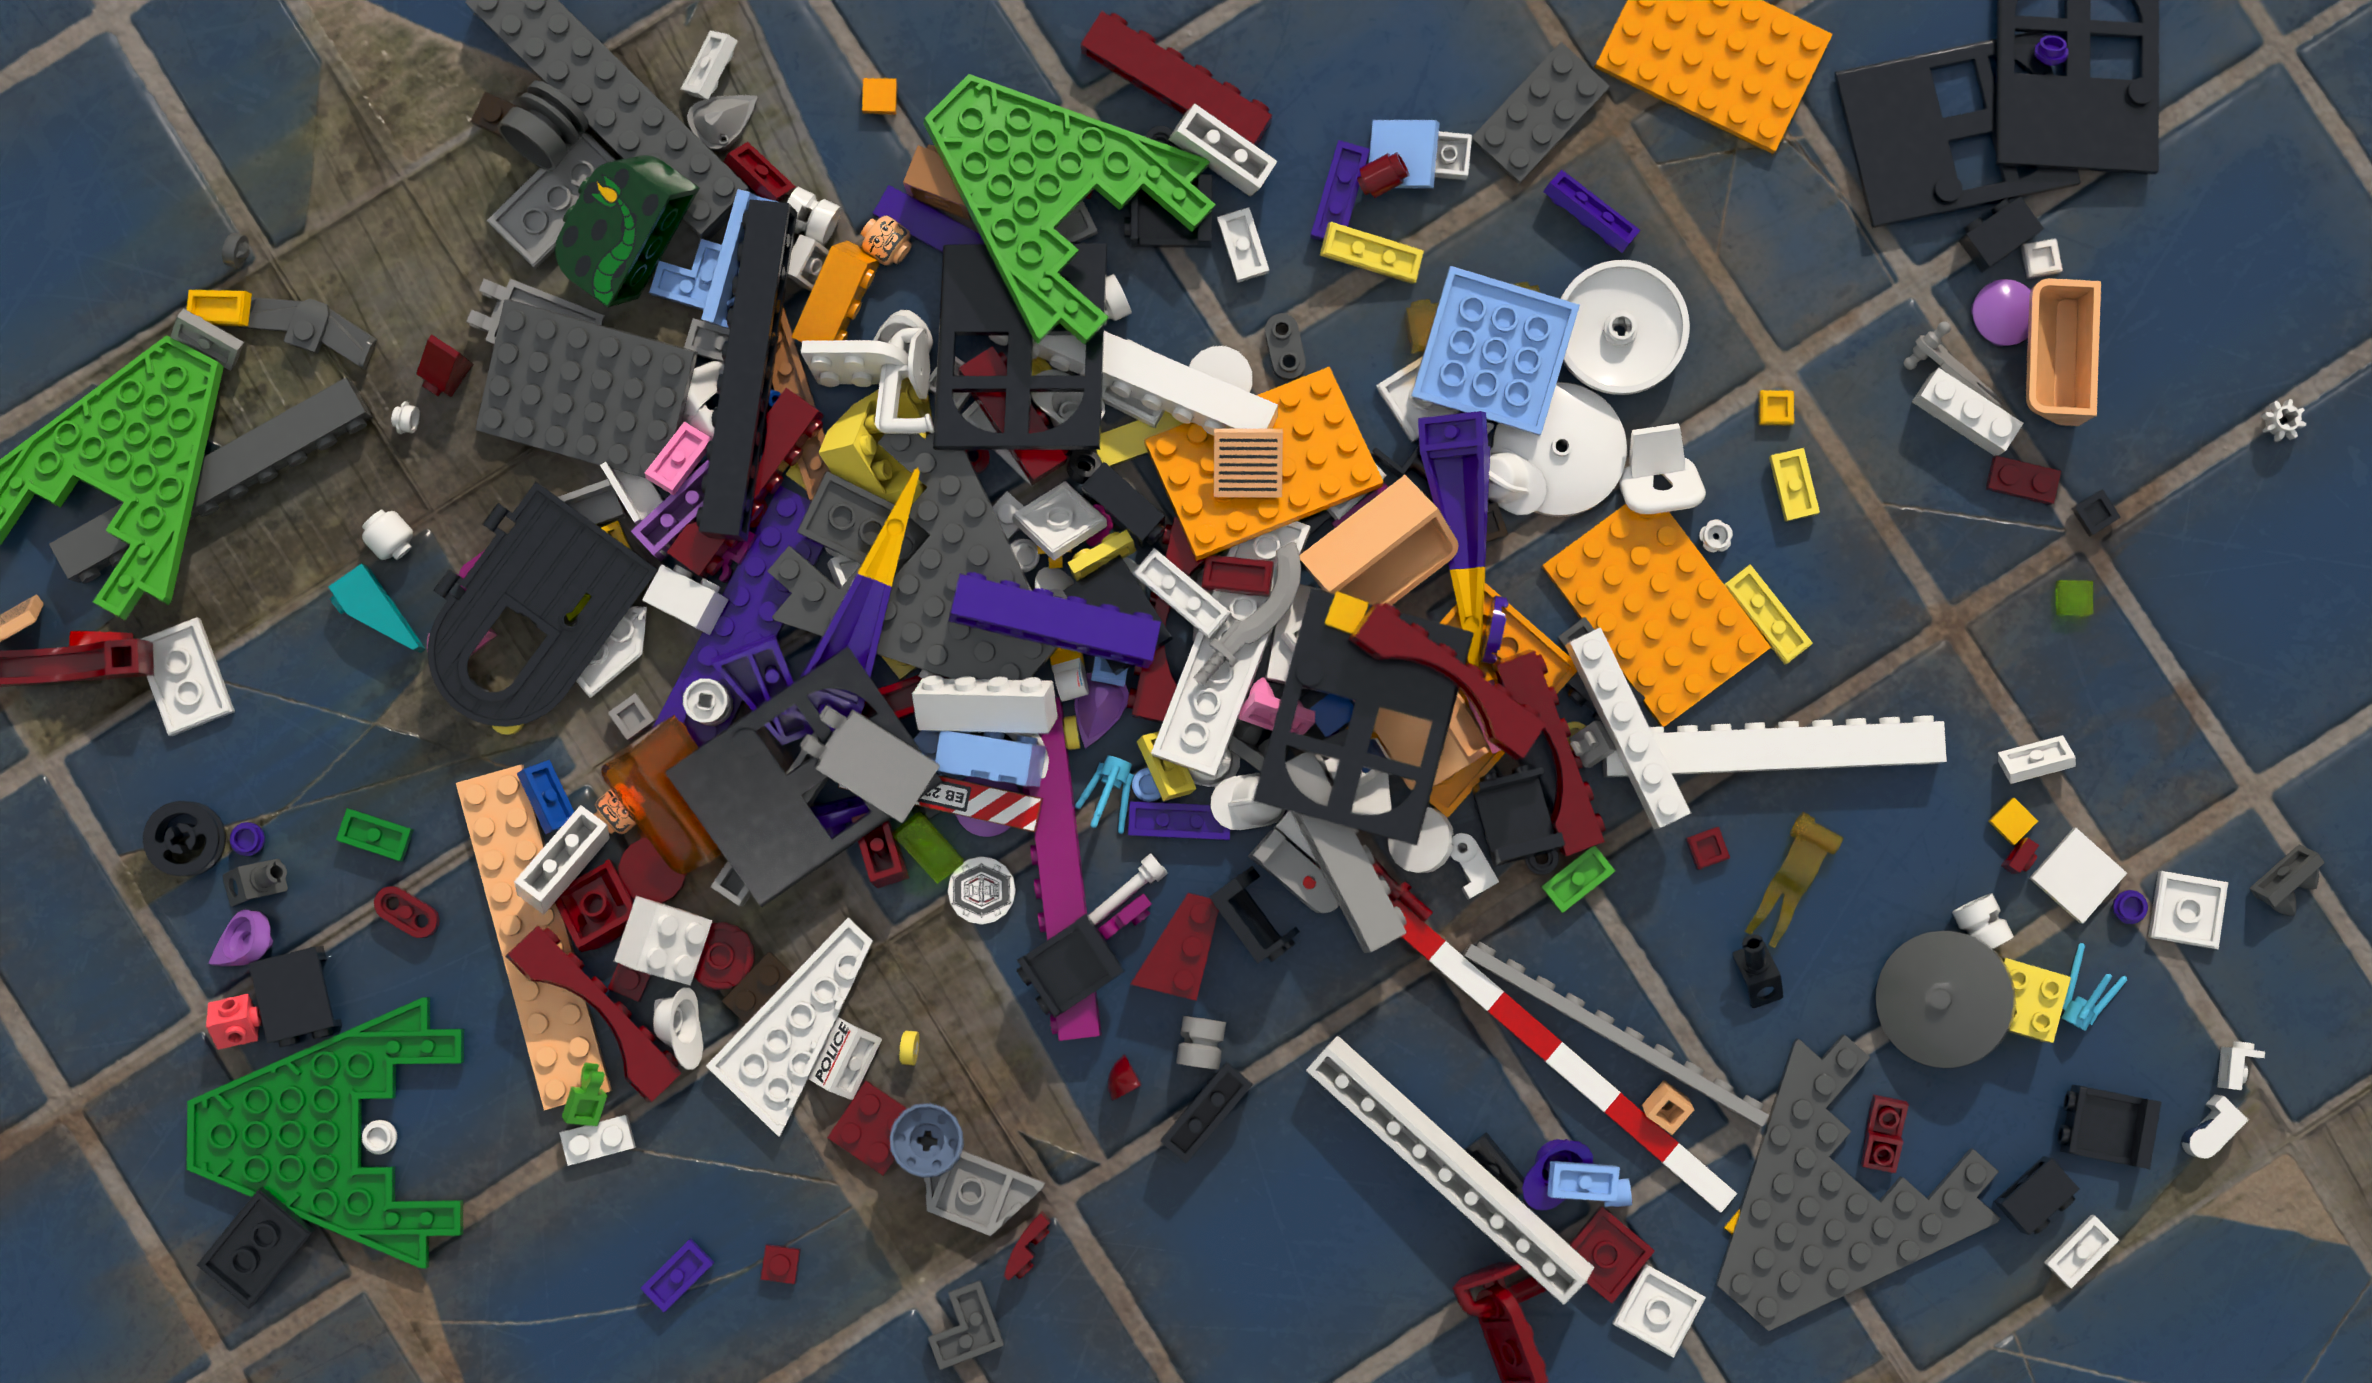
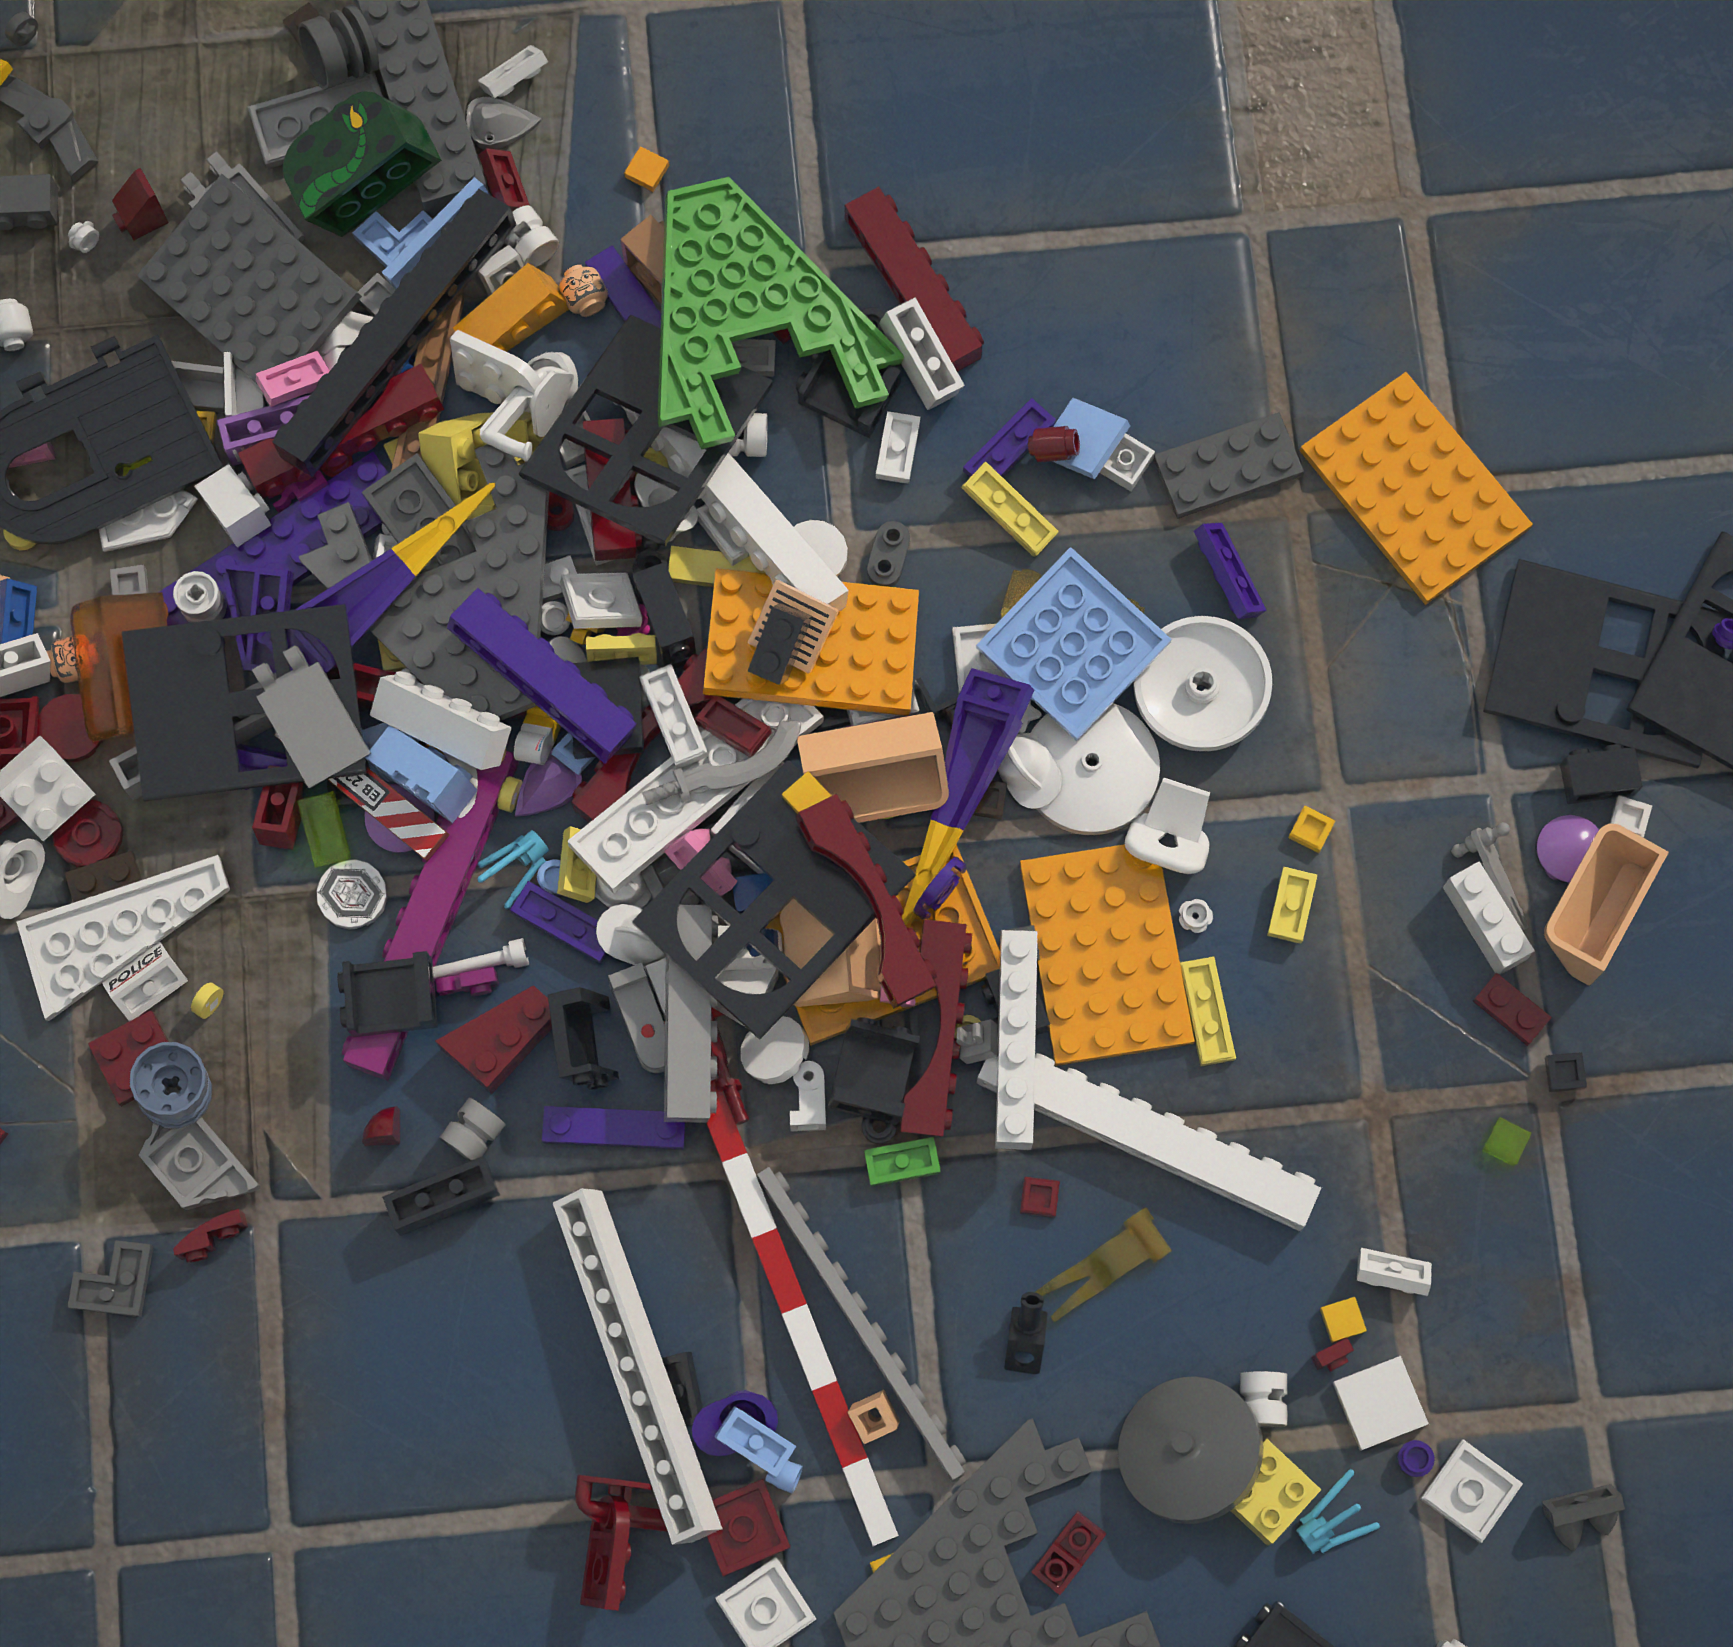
camera: 30 degrees right, 10 degrees down
(1248, 486) = (779, 643): none -> black brick
(1314, 977) = (611, 1128): none -> dark purple plate

